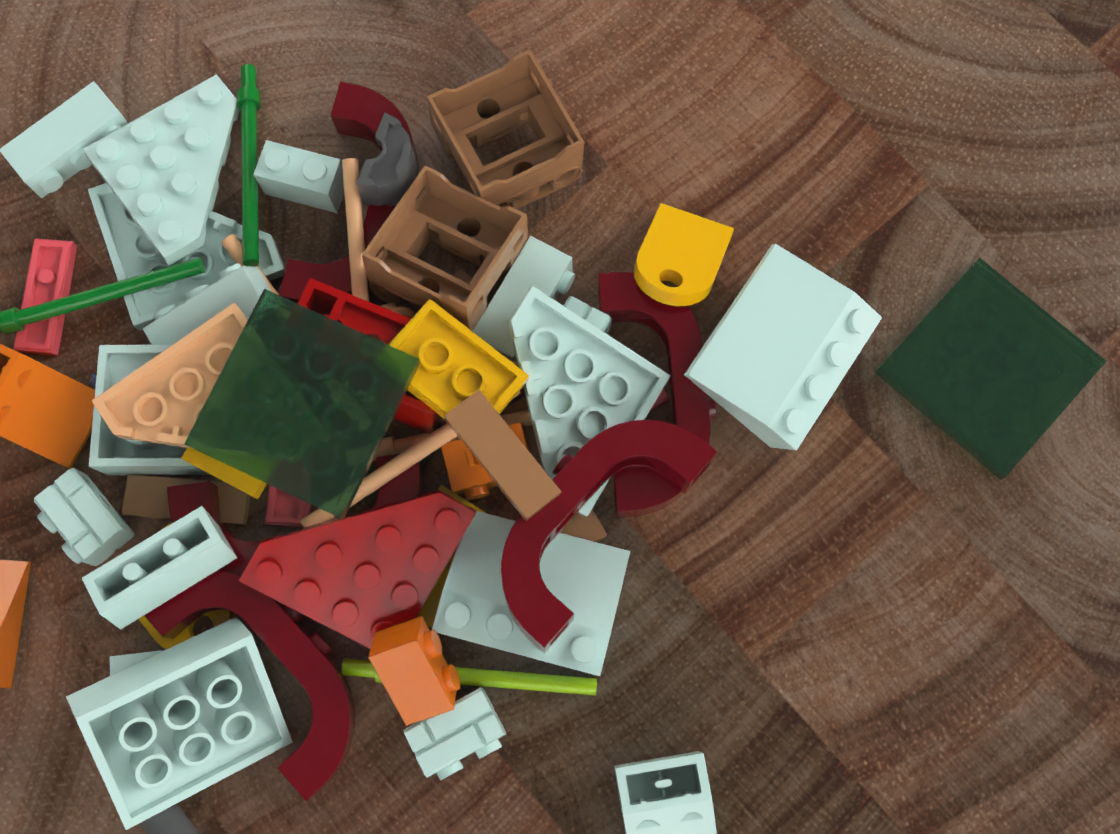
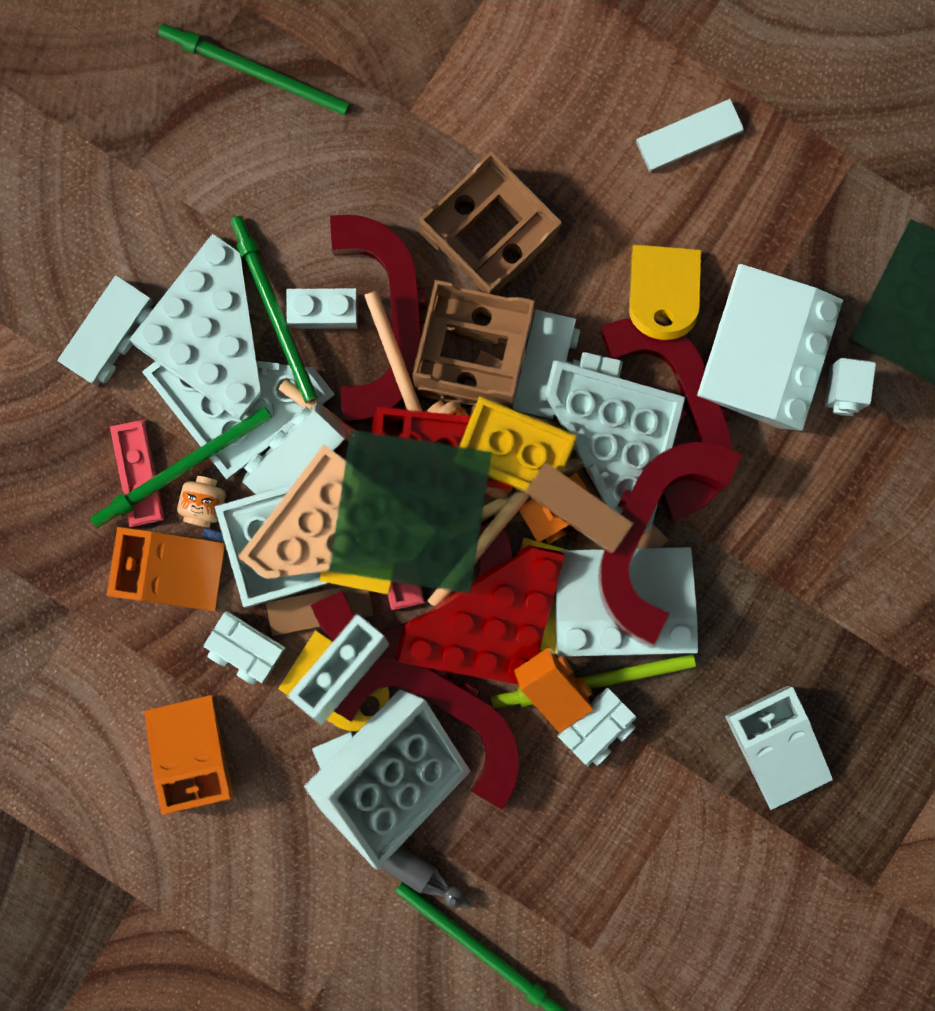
camera: 20 degrees left, 10 degrees up
(92, 333) = (199, 501): none -> light nougat head
(393, 171) = (411, 290): dark grey cylinder -> none
(755, 110) = (689, 135): none -> light aqua tile
(866, 414) = (849, 386): none -> light aqua brick

